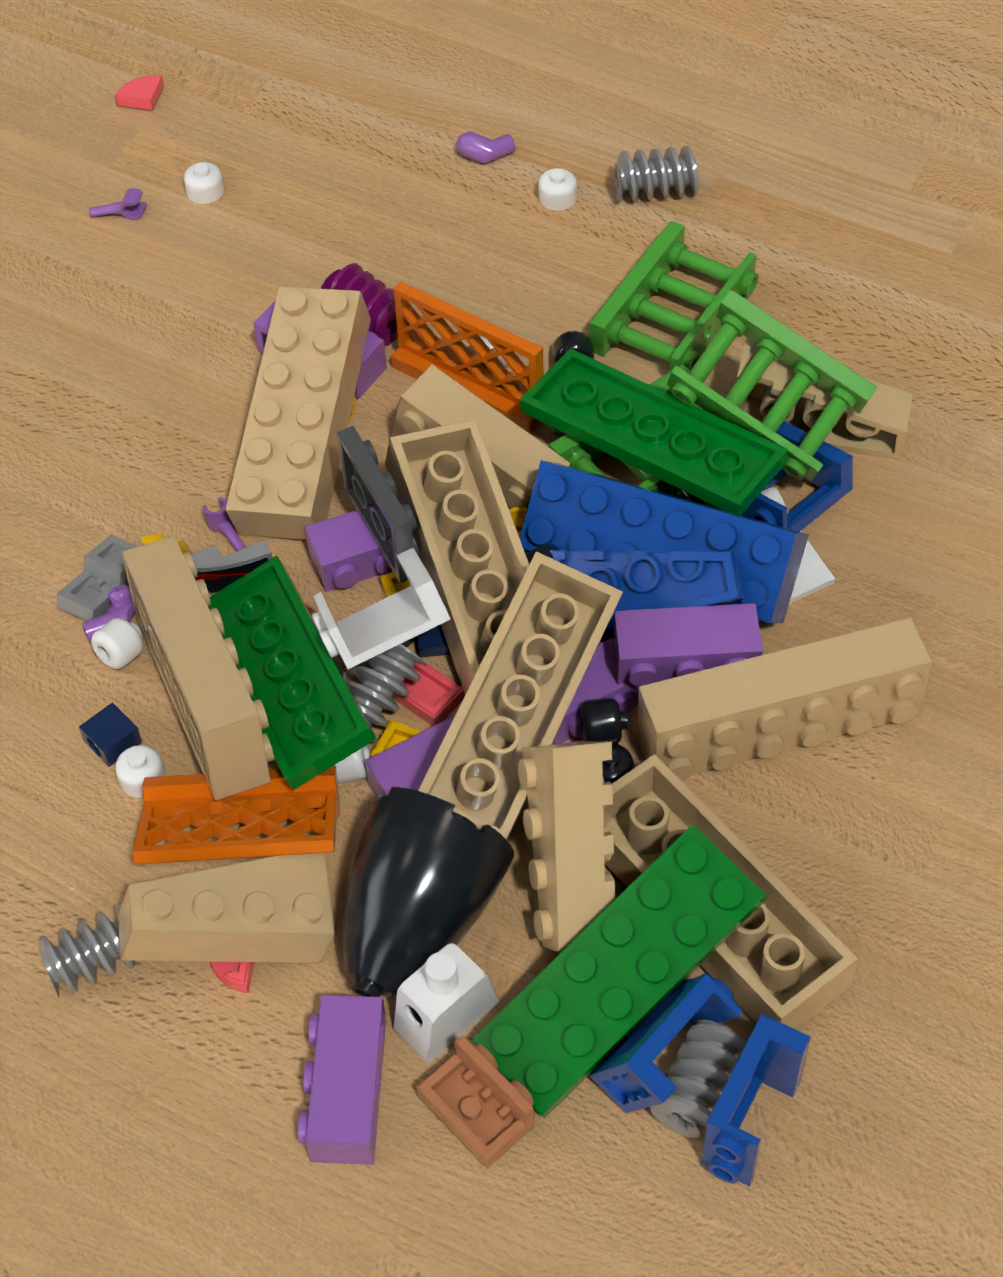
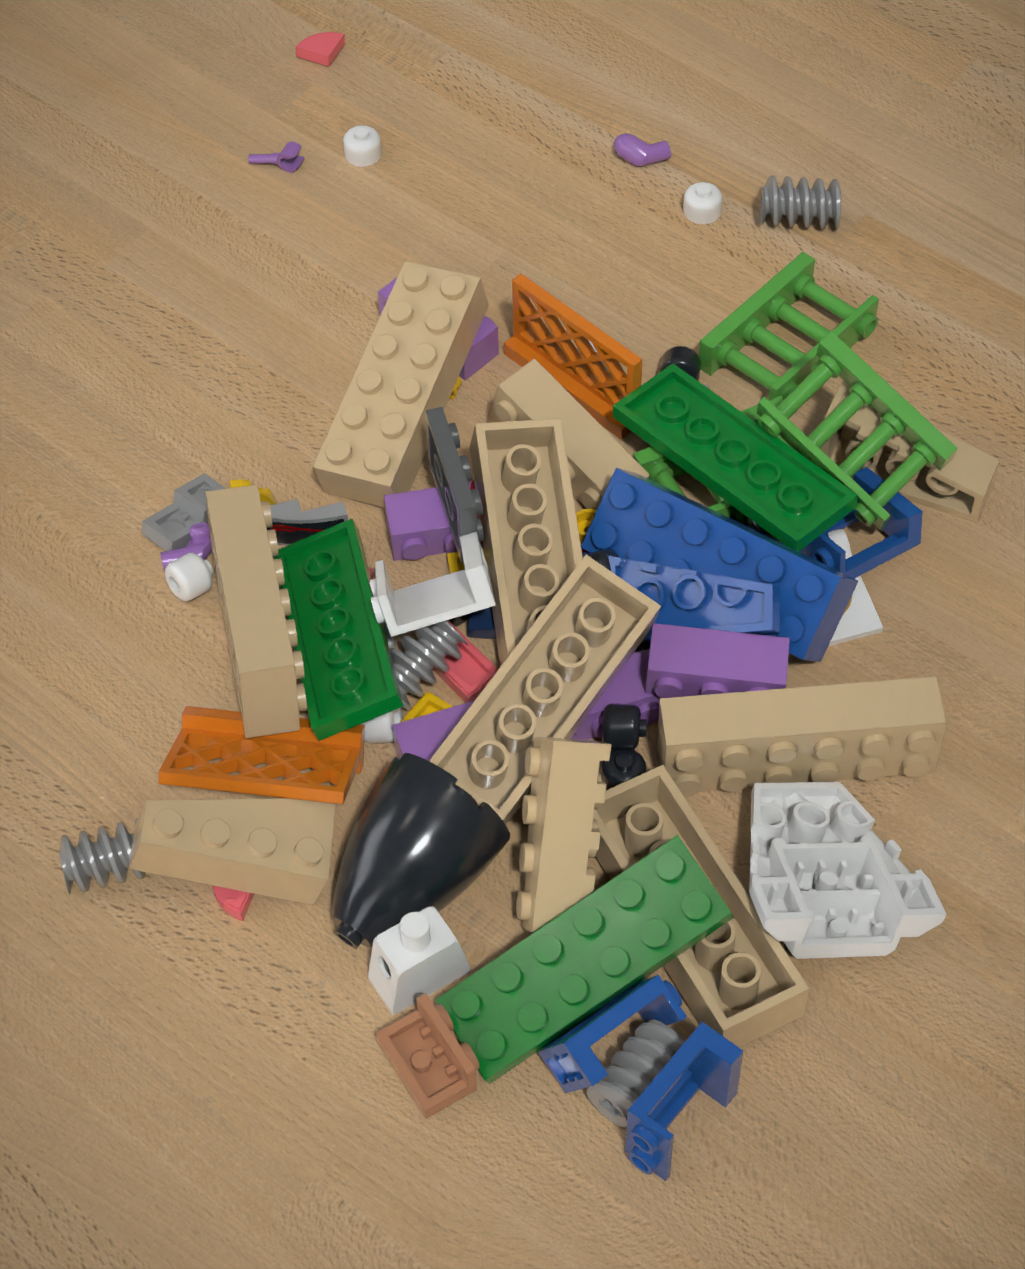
camera: 10 degrees right, 0 degrees up
(110, 733) = (165, 661): dark blue piece -> none
(135, 765) = (183, 692): white piece -> none
(220, 522) = (307, 478): medium lavender hand -> none
(344, 1080) = (311, 1014): medium lavender brick -> none
(377, 298) = (496, 283): magenta piece -> none
(847, 842) = (828, 878): none -> white wedge

